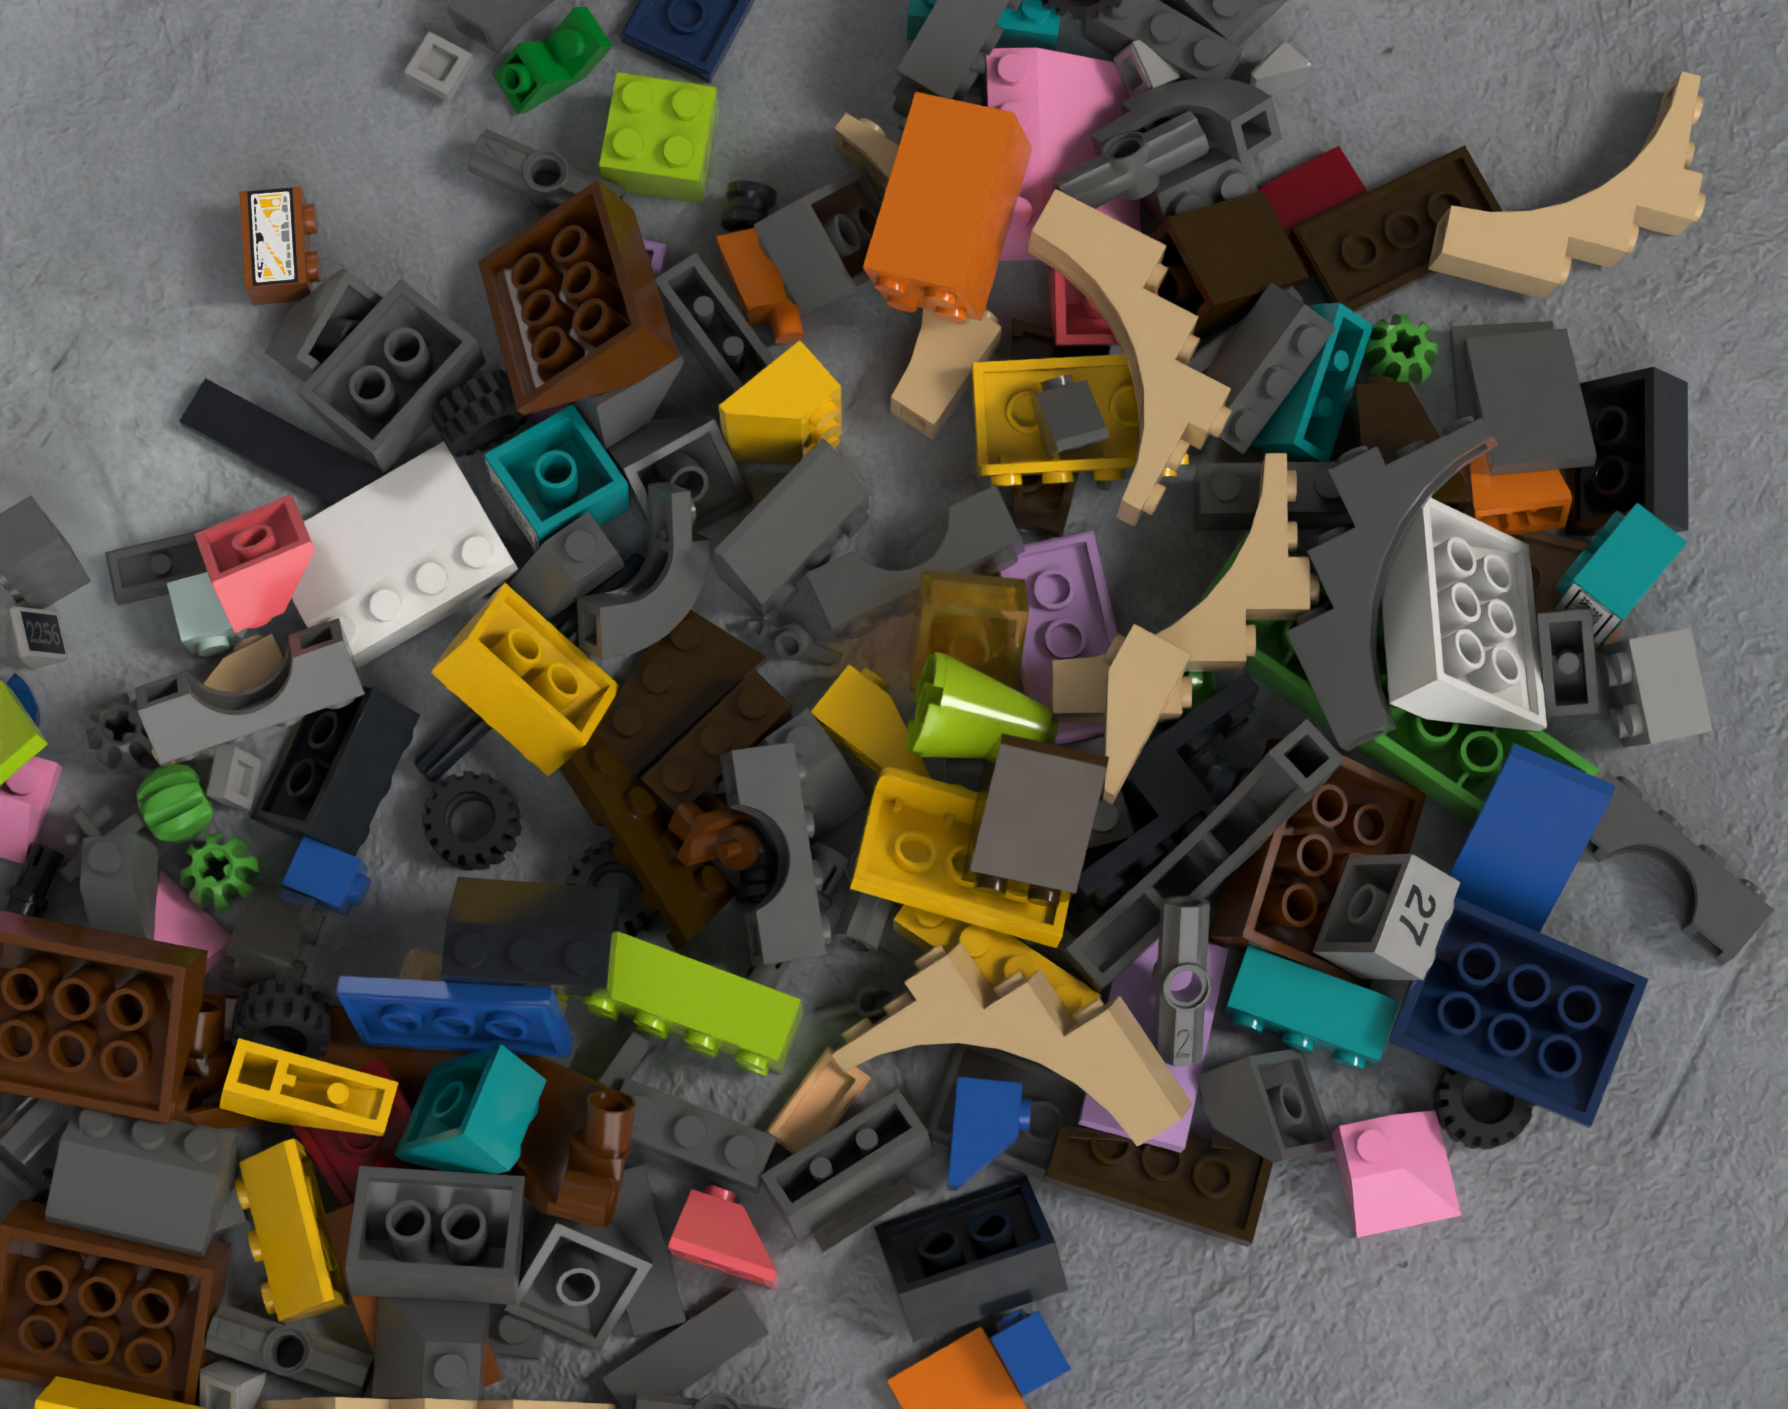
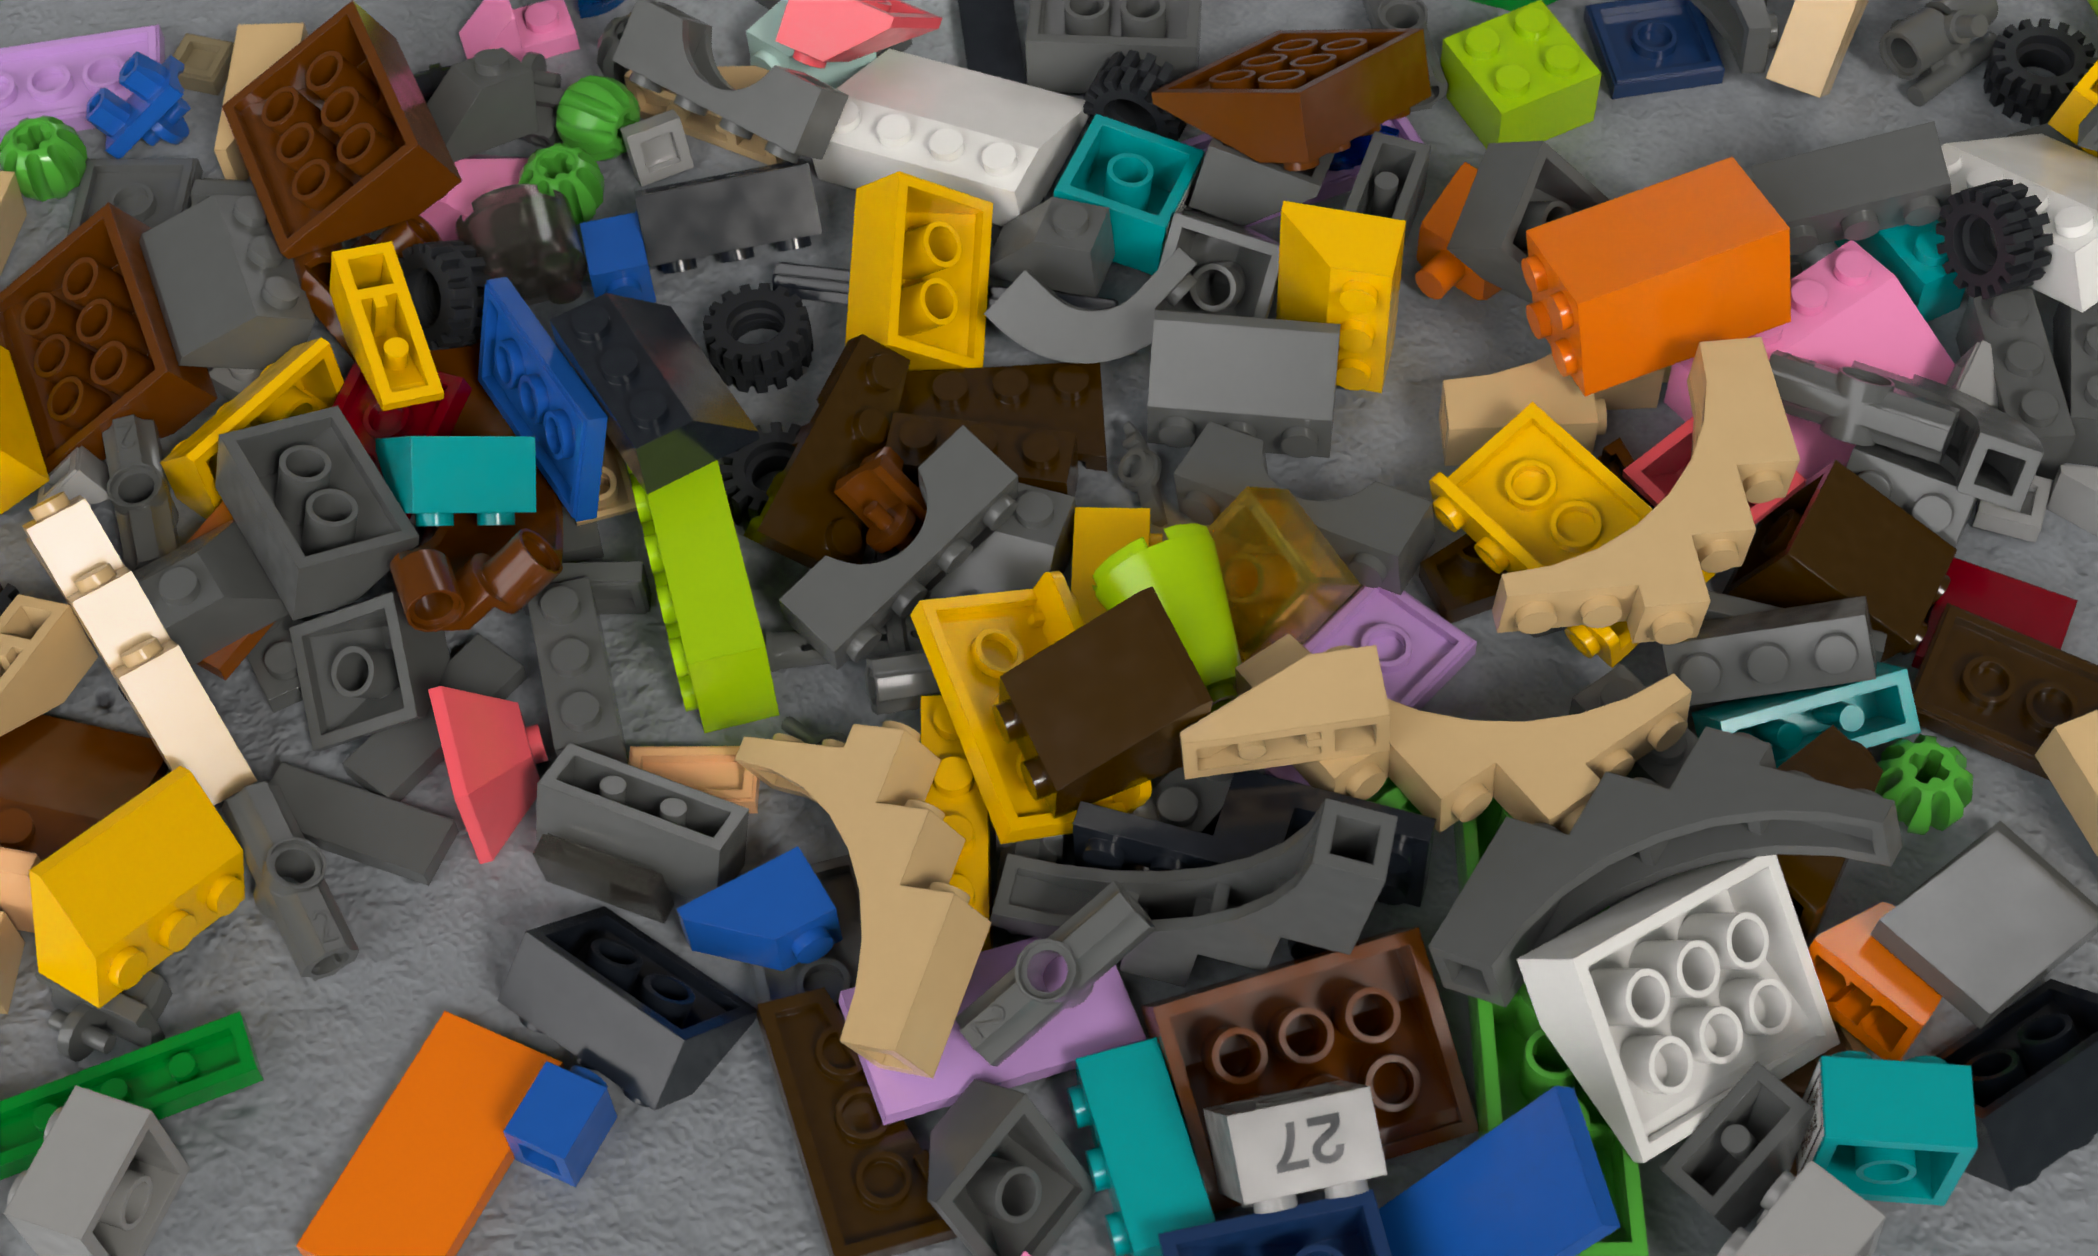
camera: 60 degrees right, 20 degrees down
(1067, 416) = (1547, 501): dark grey slope -> none

